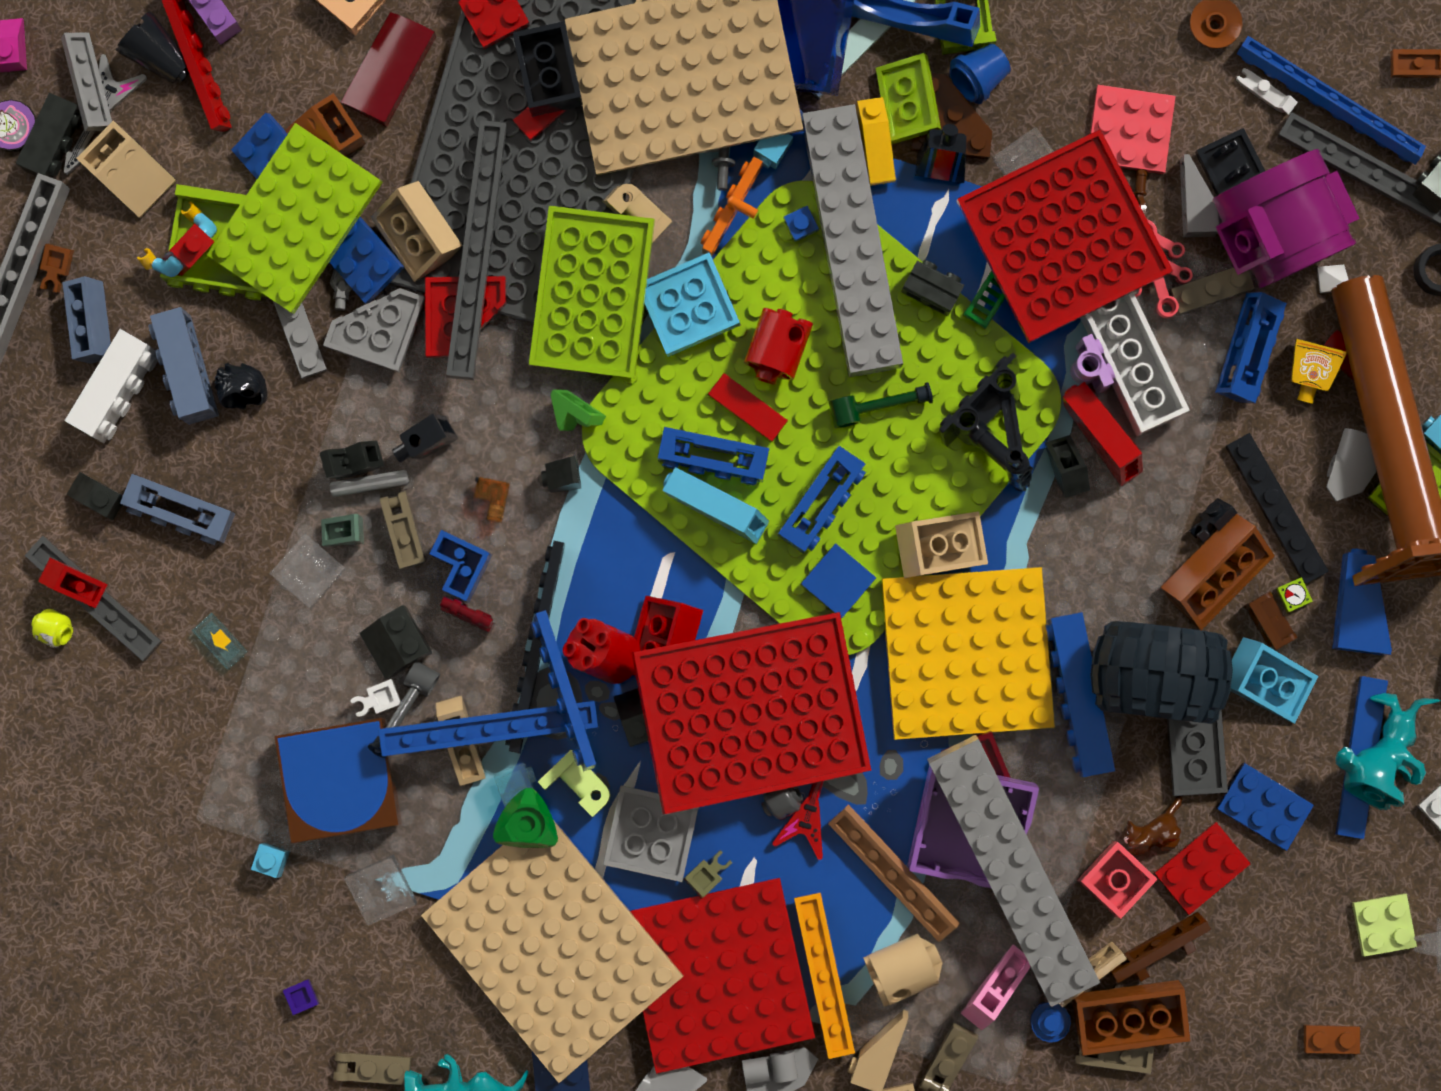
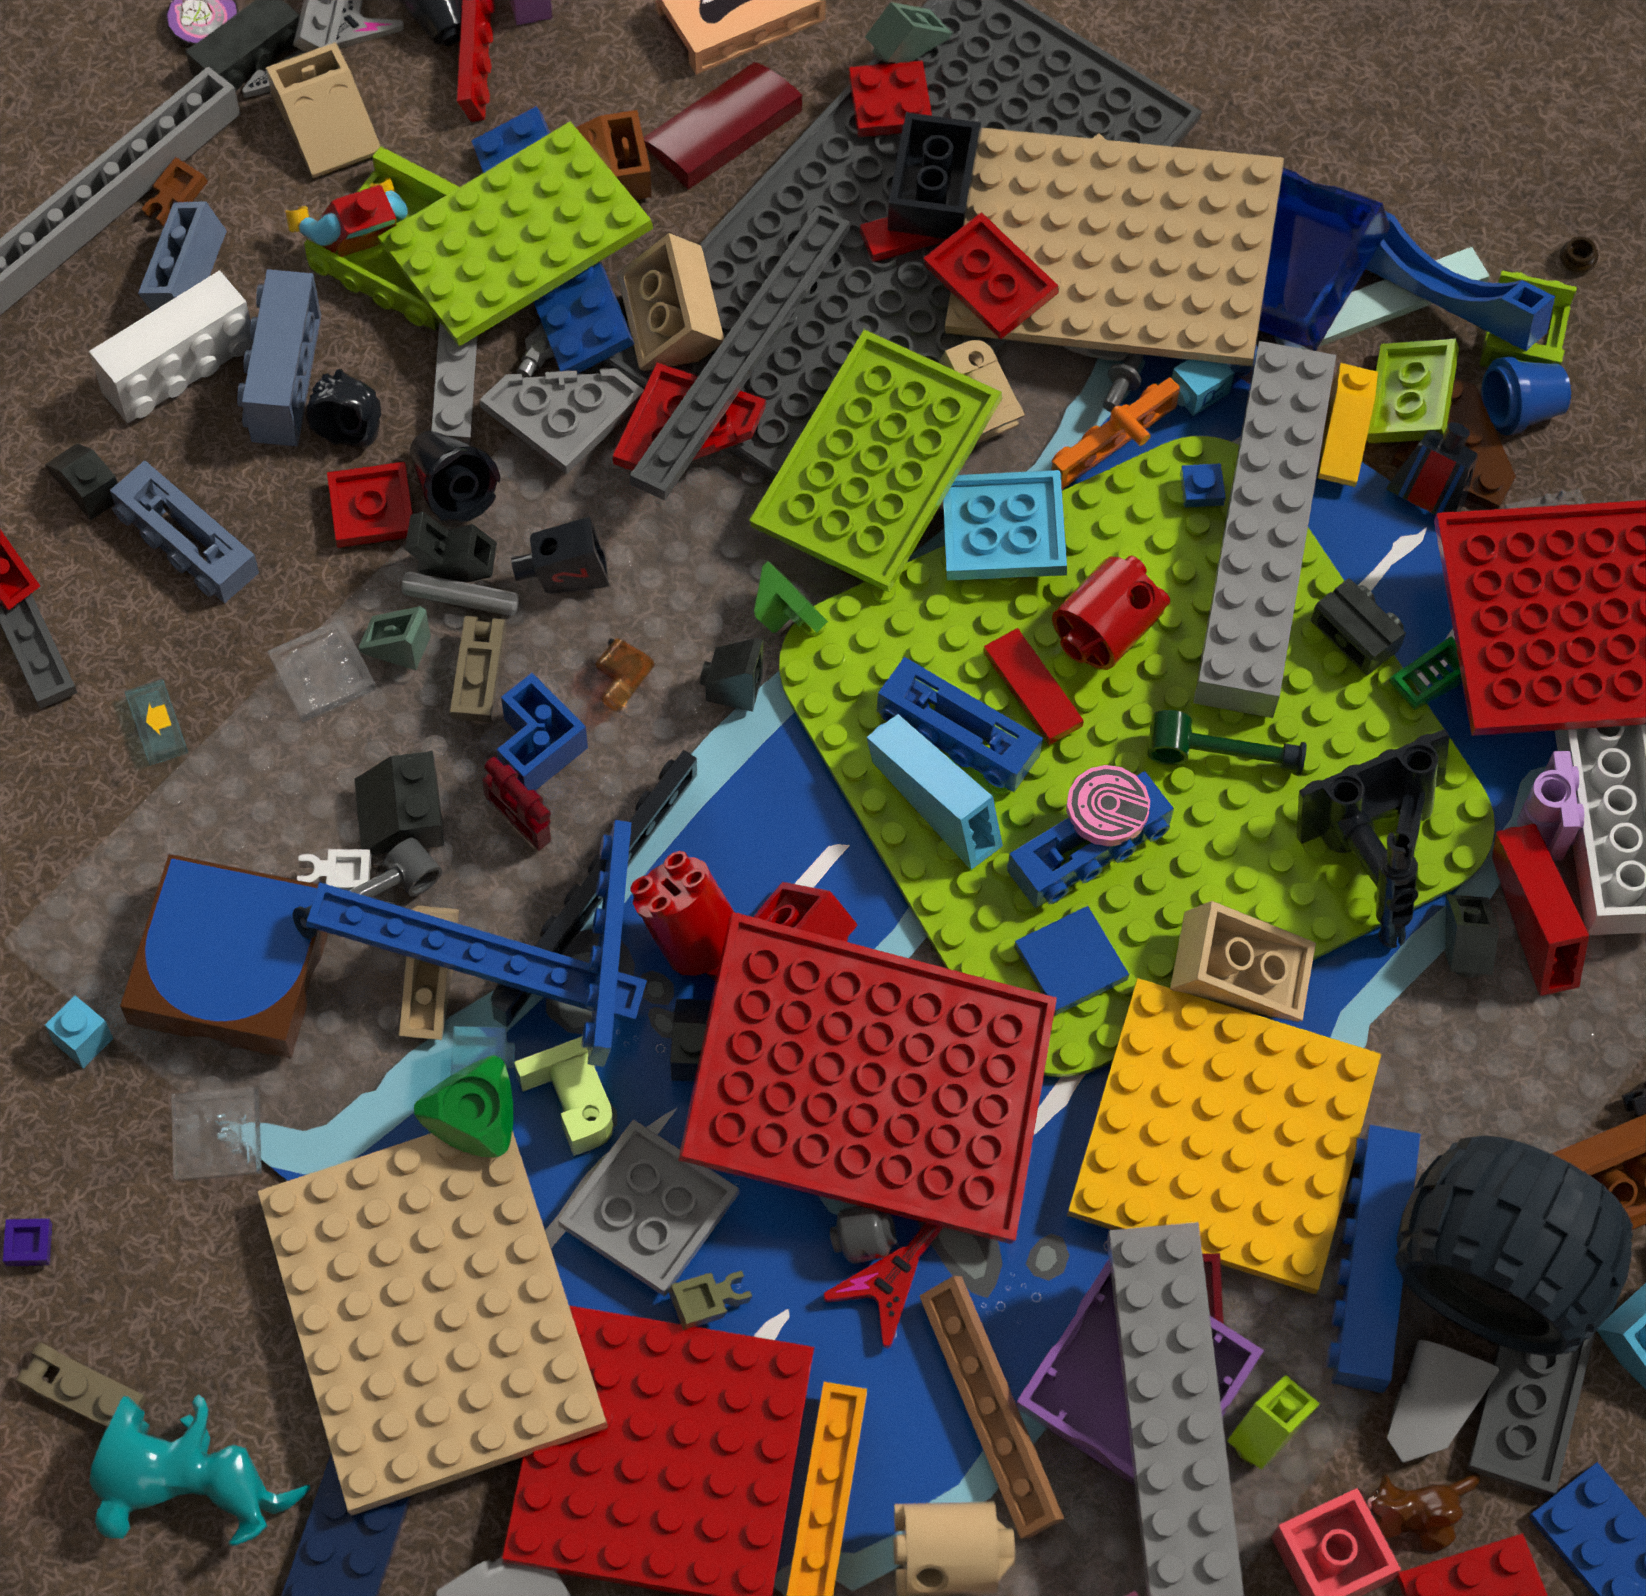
camera: 20 degrees right, 20 degrees down
(285, 441) = (370, 504): none -> red plate
(328, 406) = (454, 476): none -> black cone
(614, 133) = (991, 275): none -> red plate
(826, 479) = (1108, 805): none -> tile
(1056, 817) = (1272, 1422): none -> lime slope
(1142, 765) = (1436, 1399): none -> light grey panel

